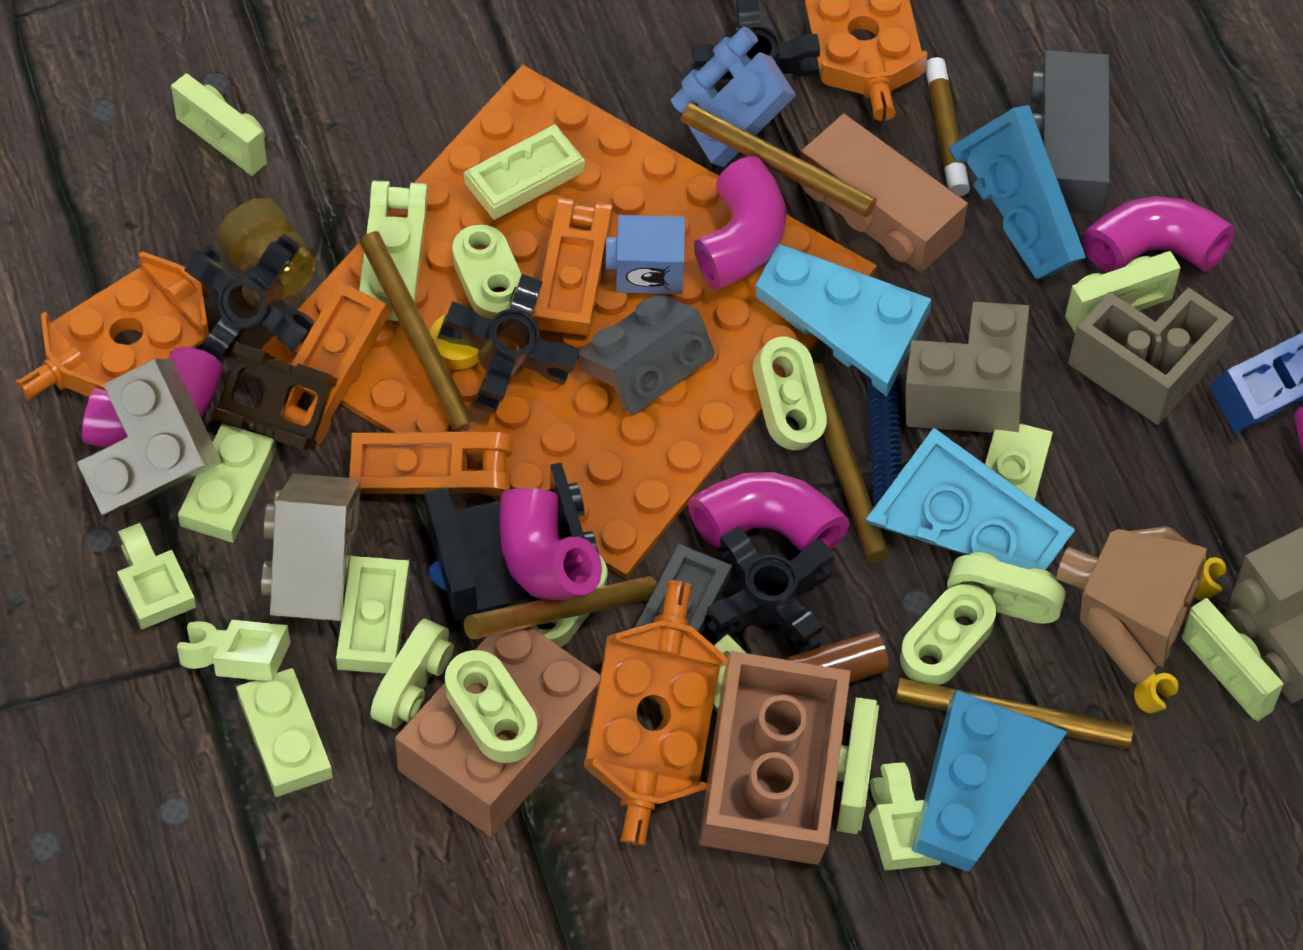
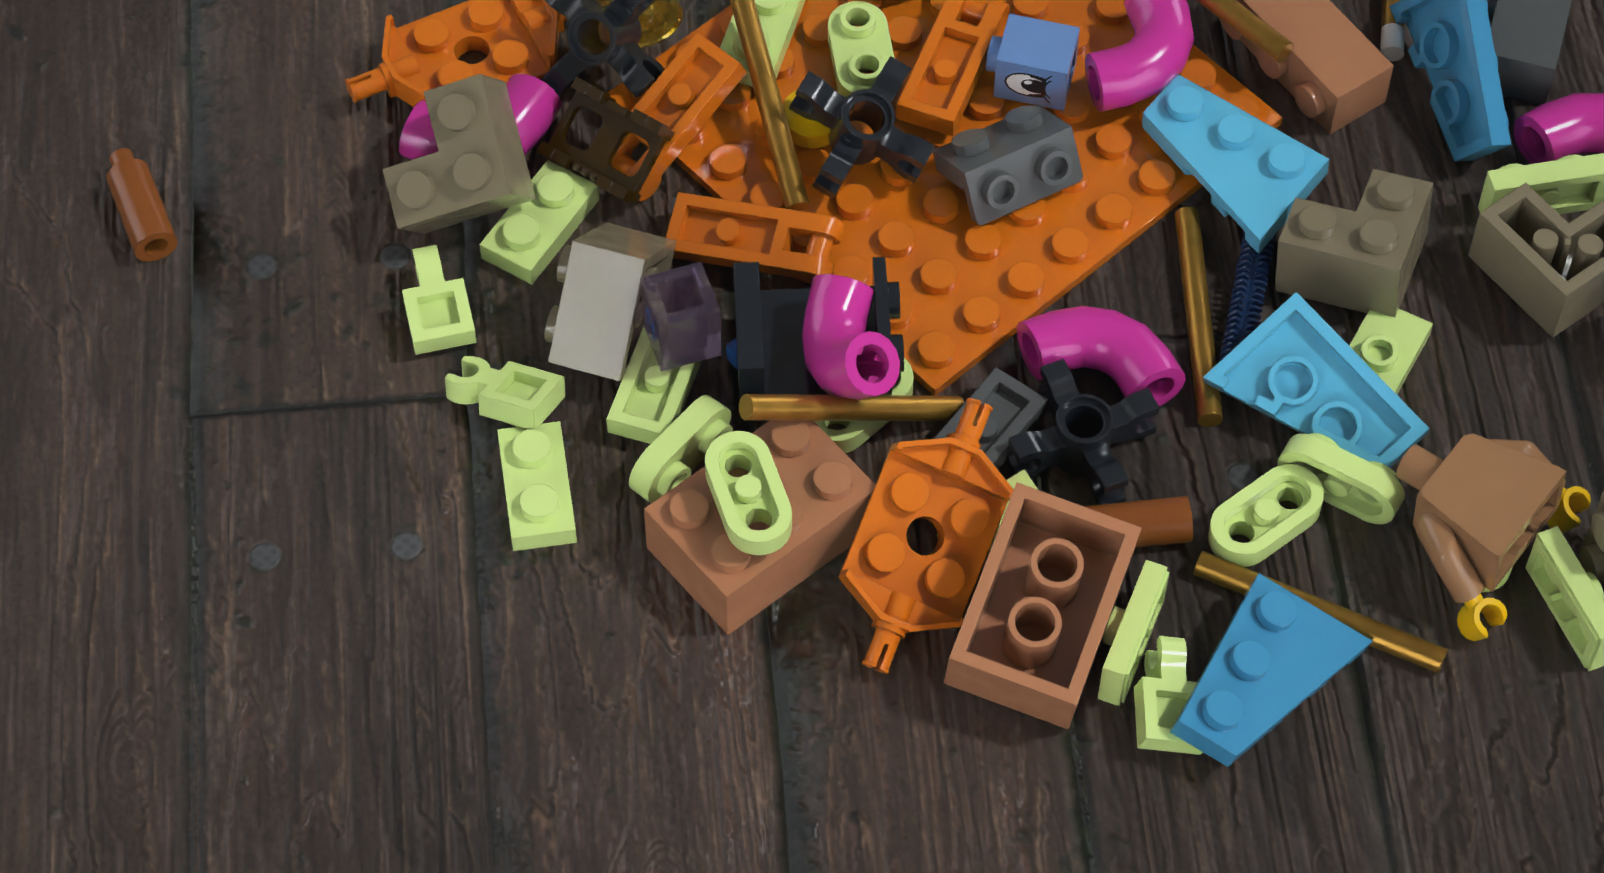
camera: 15 degrees right, 0 degrees up
(387, 551) = (681, 316): none -> clear purple brick
(792, 396) = (1153, 236): yellowish green plate -> none

